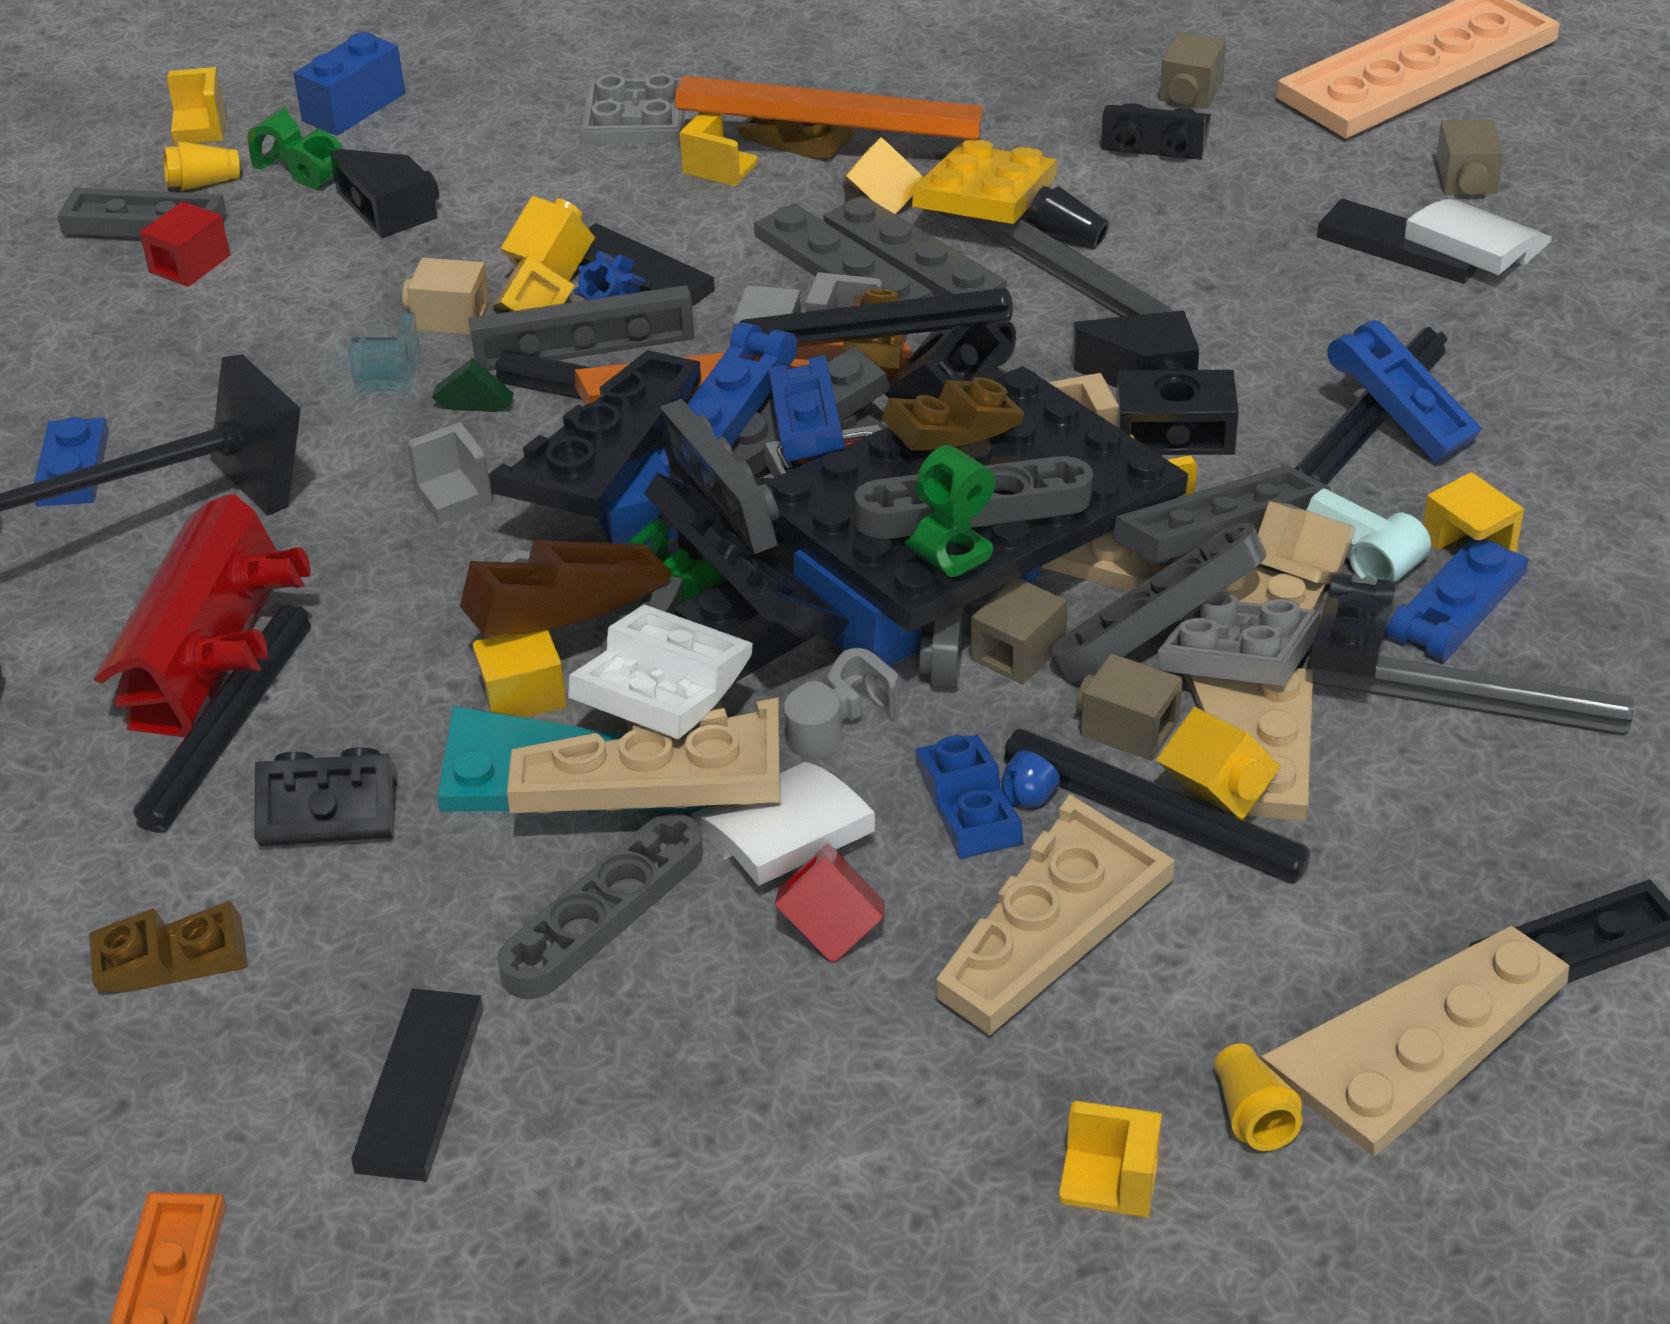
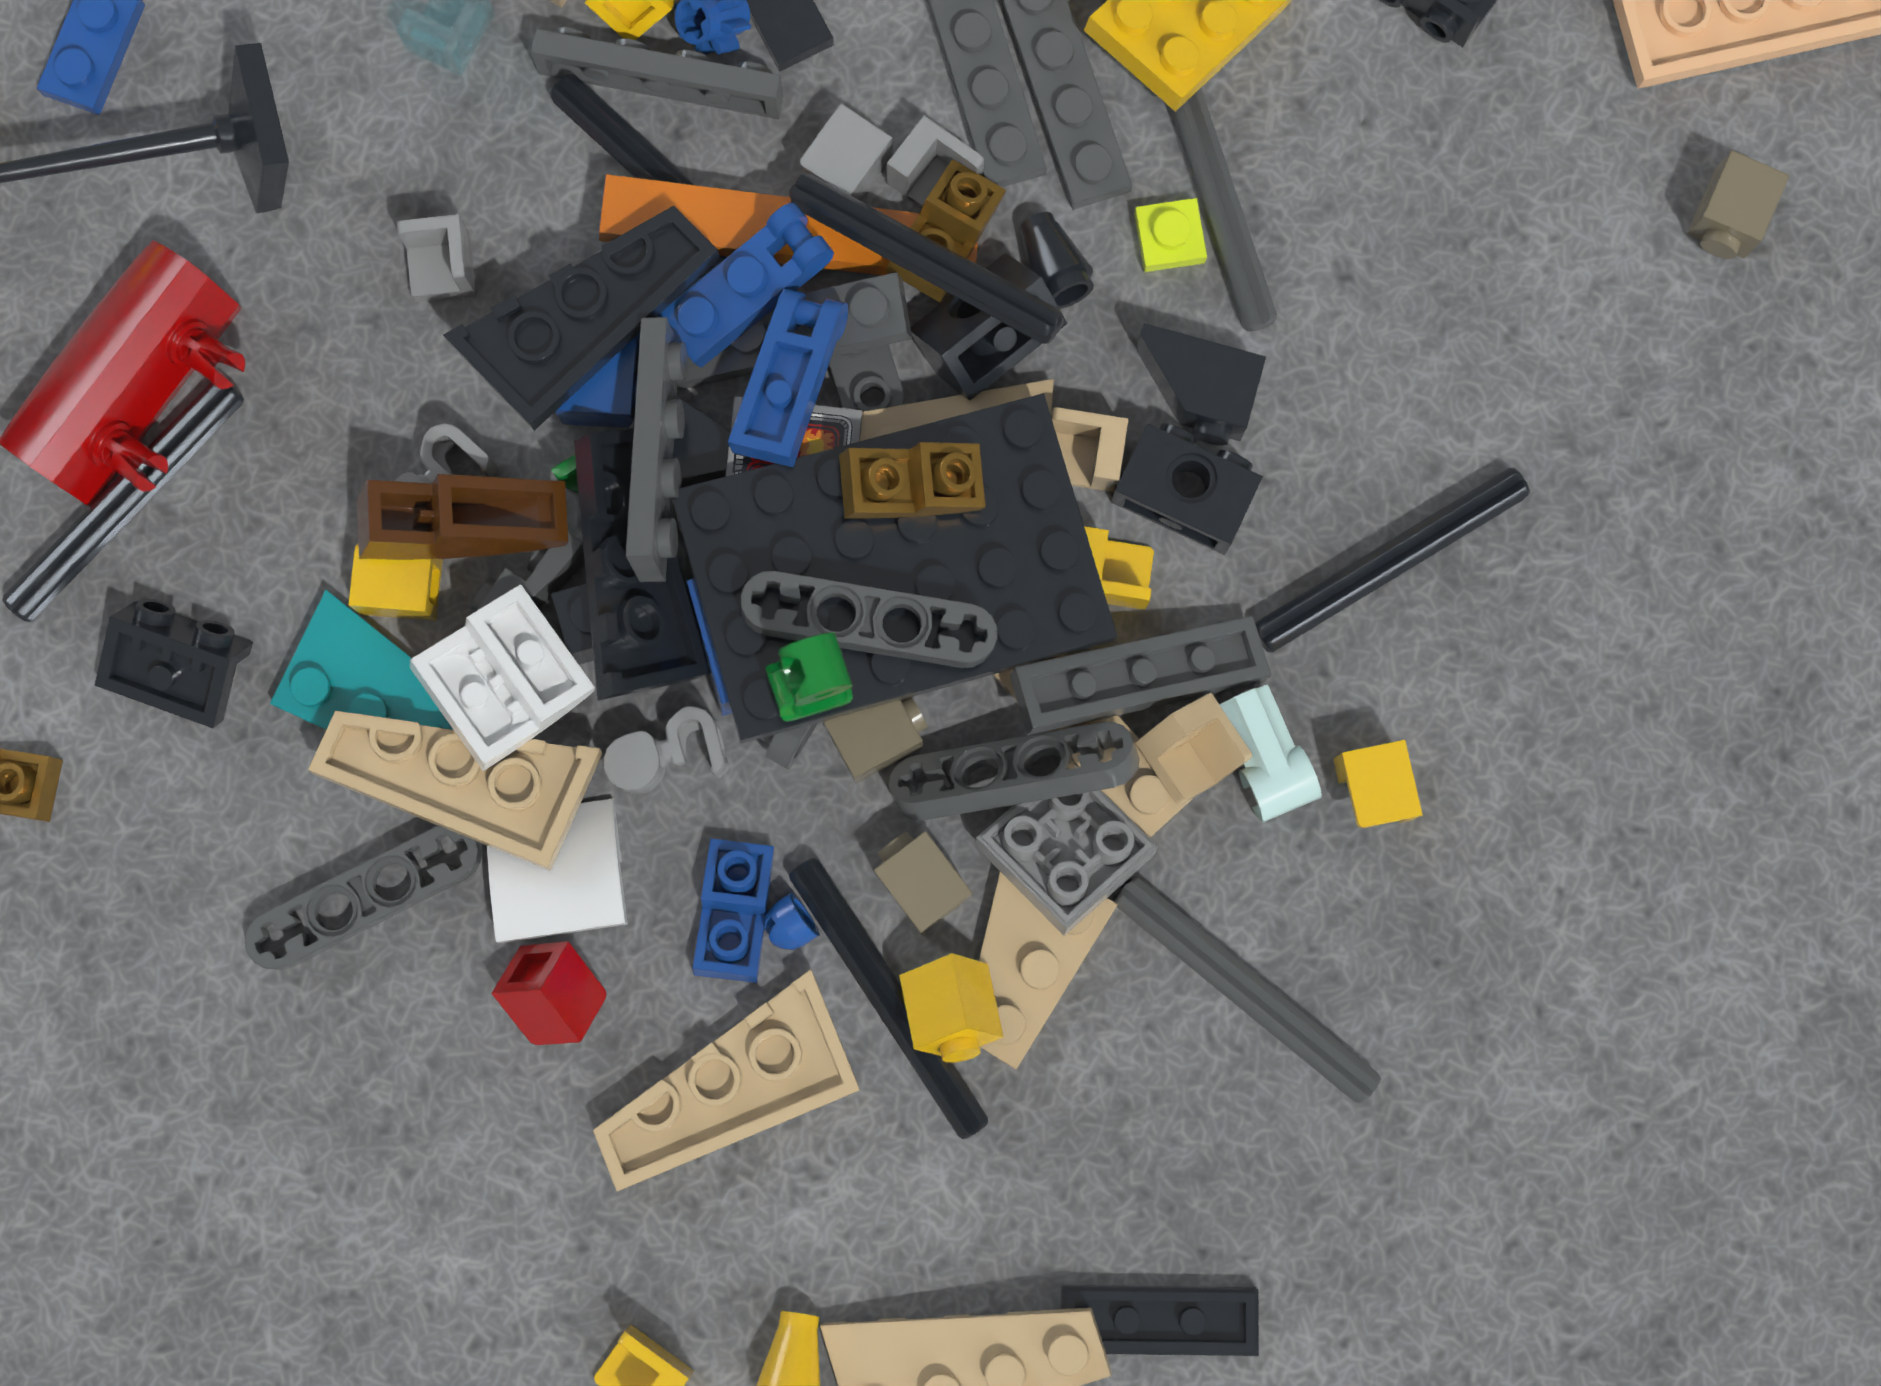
camera: 20 degrees right, 40 degrees up
(417, 1085) = (140, 1027): black tile -> none
(472, 390) = (515, 120): dark green tile -> none
(1055, 300) = (1170, 235): none -> neon yellow plate
(1066, 218) = (1248, 107): black cone -> none
(1353, 626) = (1179, 878): black plate -> none
(1384, 237) = (1587, 300): black tile -> none
(1404, 389) = (1423, 575): blue plate -> none
(1458, 598) = (1310, 869): blue plate -> none
(1474, 235) = (1668, 335): white slope -> none

